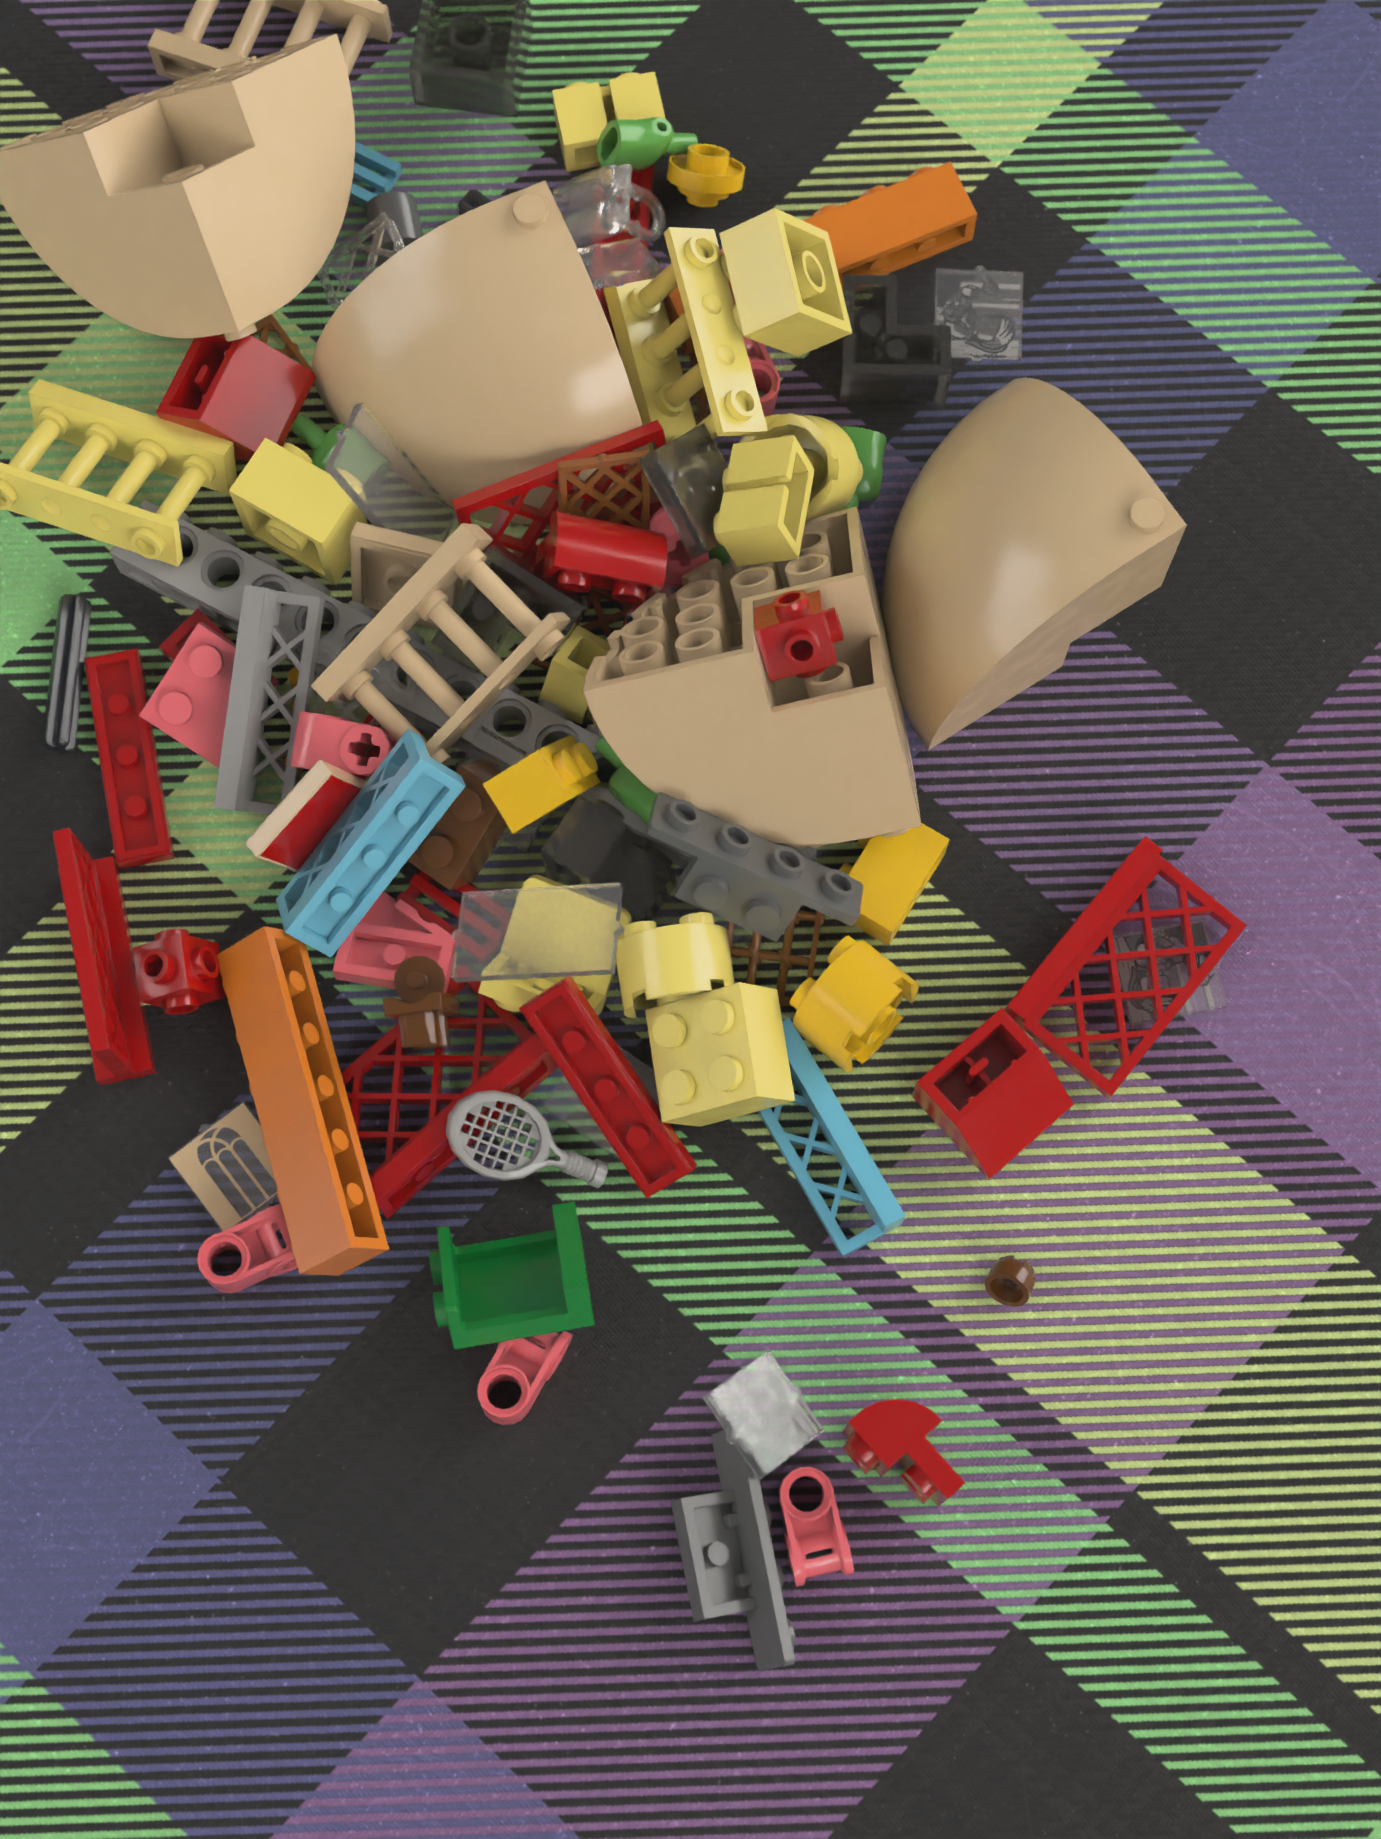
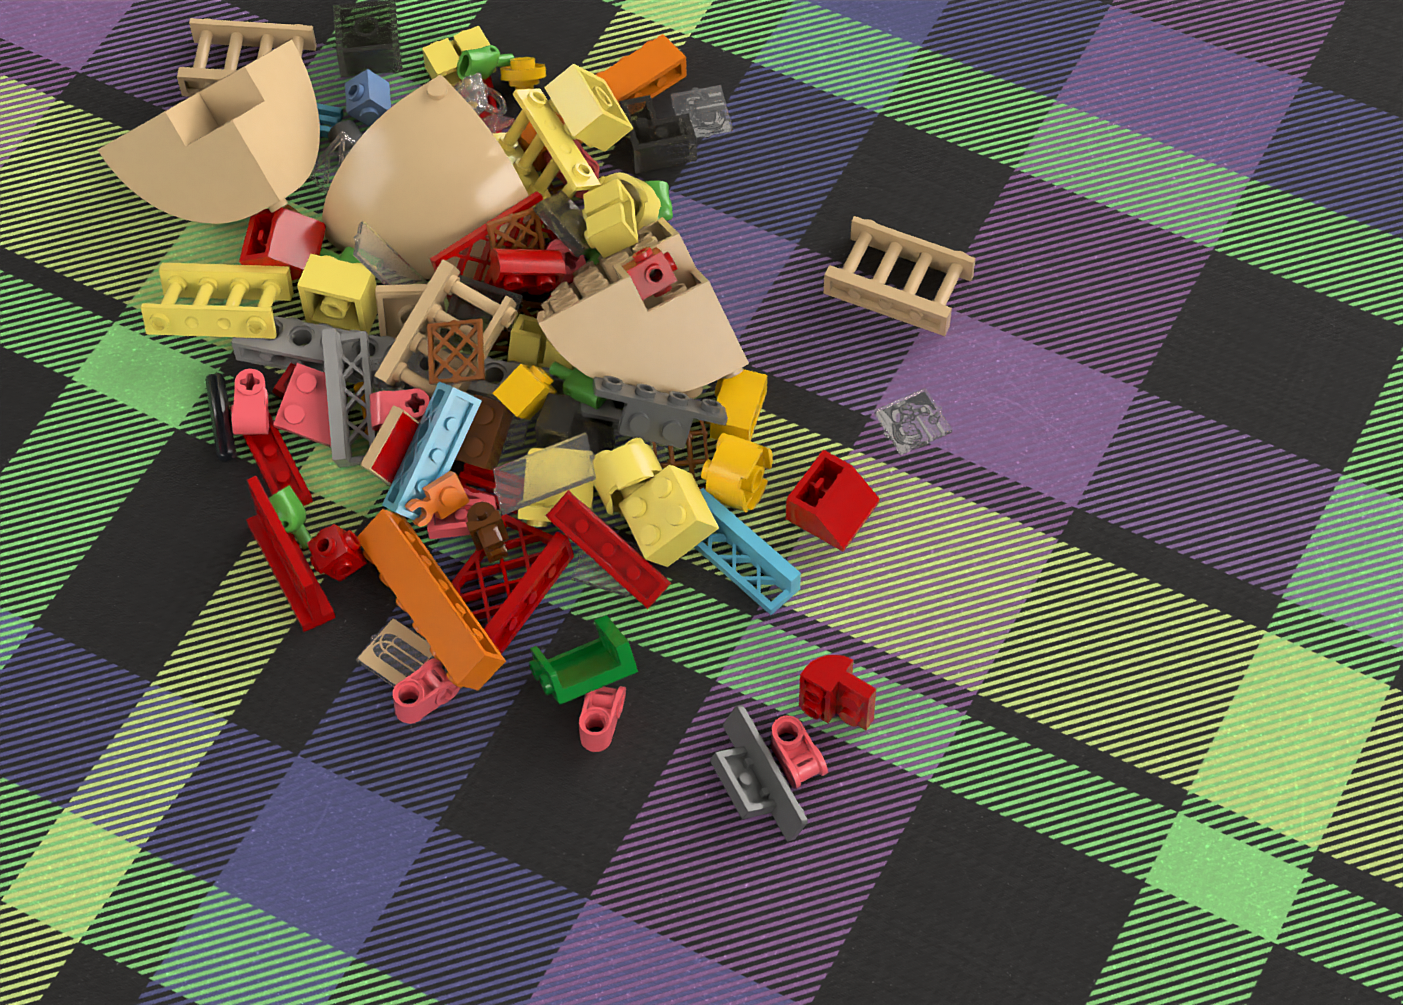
camera: 15 degrees left, 15 degrees down
(109, 682) = (250, 405): none -> coral piece
(124, 883) = (291, 514): none -> bright green piece
(367, 924) = (442, 498): none -> orange plate
(443, 157) = (367, 97): none -> medium blue brick
(484, 694) = (479, 350): none -> dark orange window
(571, 1163) = (596, 599): light grey piece -> none
(763, 1414) = (750, 699): clear piece -> none
(1008, 1292) = (865, 596): reddish brown hinge -> none
(1014, 549) = (760, 213): tan brick -> none
(1085, 937) = (864, 403): red fence -> none
(1212, 757) = (890, 301): none -> tan fence

